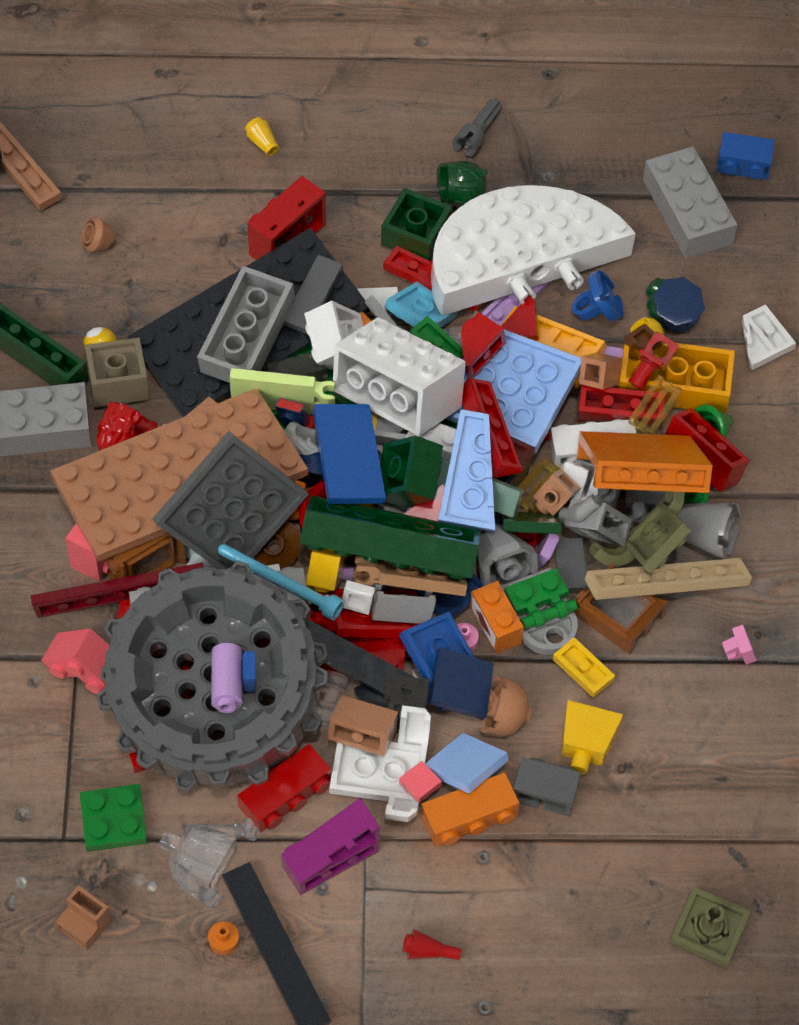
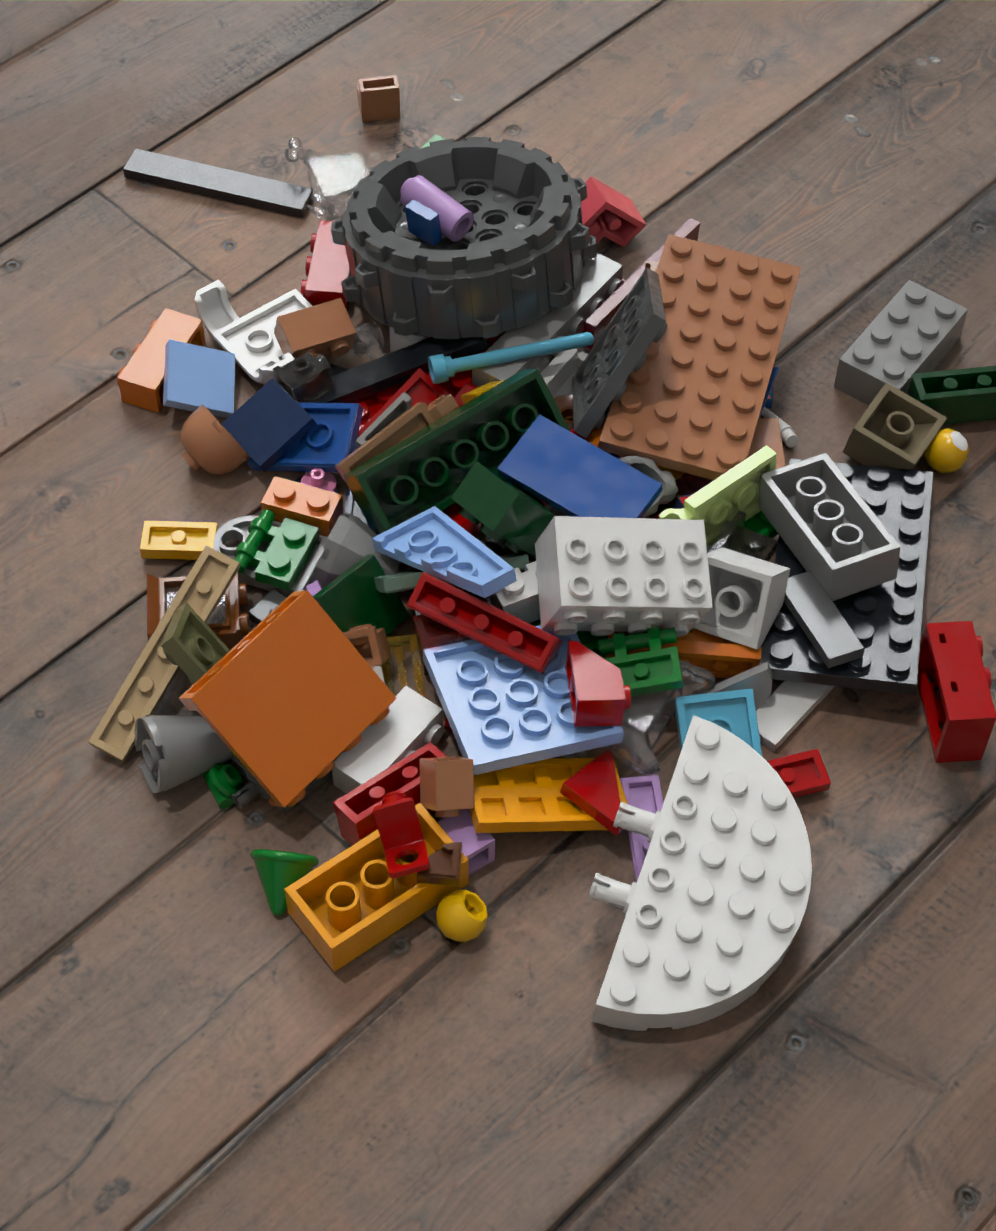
camera: 135 degrees right, 5 degrees down
(121, 424) = (813, 393): red hair -> none
(223, 938) = (264, 161): orange tile -> none
(332, 848) = (243, 252): magenta wedge -> none
(358, 597) = (431, 392): white tile -> none
(414, 223) = (842, 813): dark green brick -> none
(420, 782) = (222, 335): coral tile -> none
(422, 946) = (100, 254): red cone -> none
(460, 182) = (857, 909): dark green helmet -> none
(472, 135) = (932, 998): dark grey piece -> none
(548, 782) = (112, 421): dark grey piece -> none
(588, 734) = (118, 487): yellow torso -> none
(600, 299) = (549, 909): blue tile -> none
(667, 386) = (346, 776): clear yellow tile -> none
(674, 303) = (469, 976): dark blue piece -> none
(689, 202) = (594, 1140): light grey brick -> none
(726, 459) = (260, 827): red brick -> none
(739, 646) = (39, 672): bright pink tile -> none
(764, 337) = (330, 1041): white wing -> none

